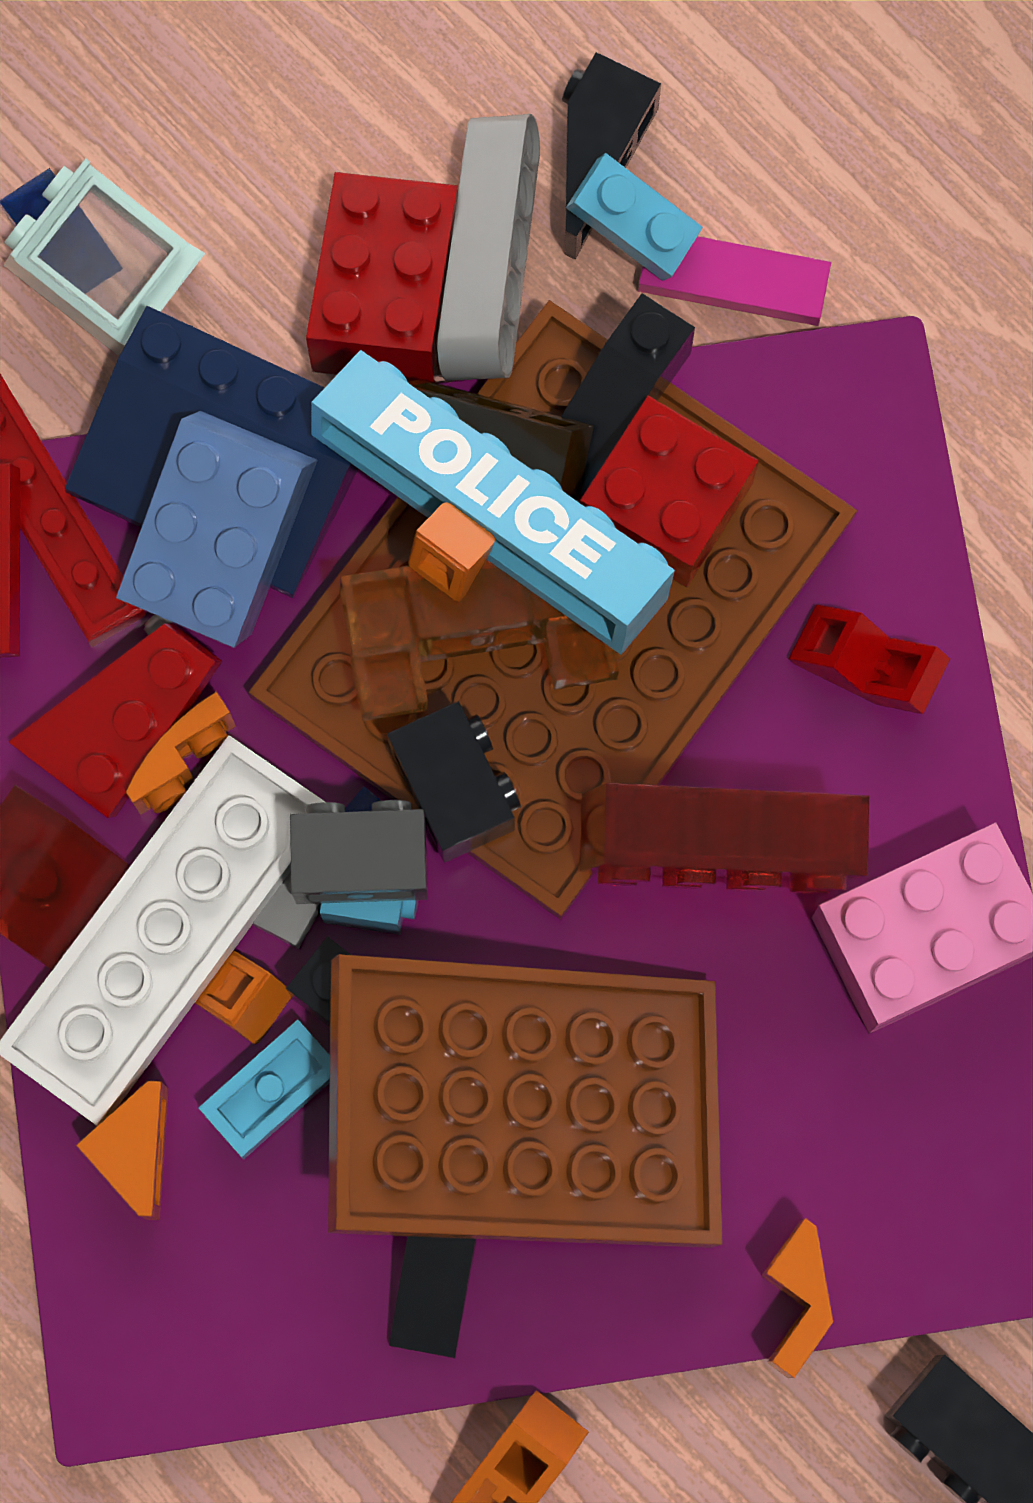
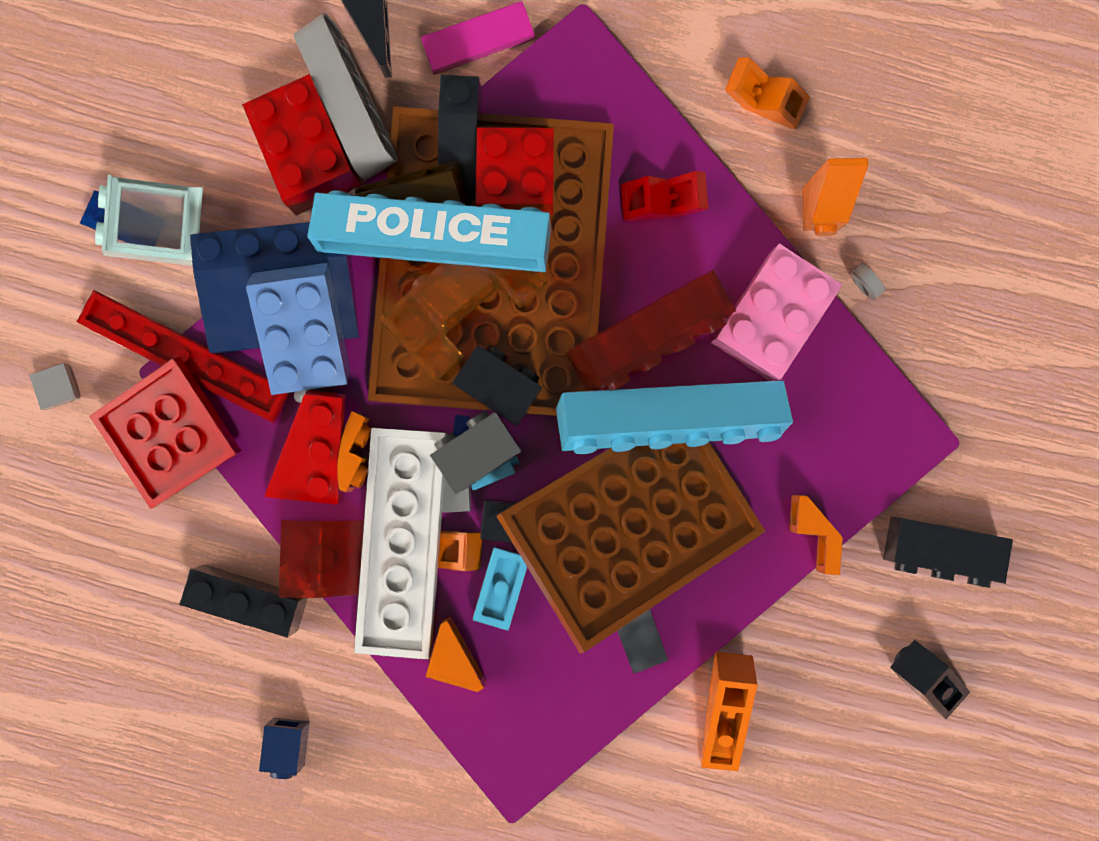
camera: 25 degrees left, 10 degrees up
(450, 550) = (427, 271): orange slope -> none
(634, 217) = (409, 36): medium azure plate -> none
(685, 981) = (672, 416): none -> medium azure brick

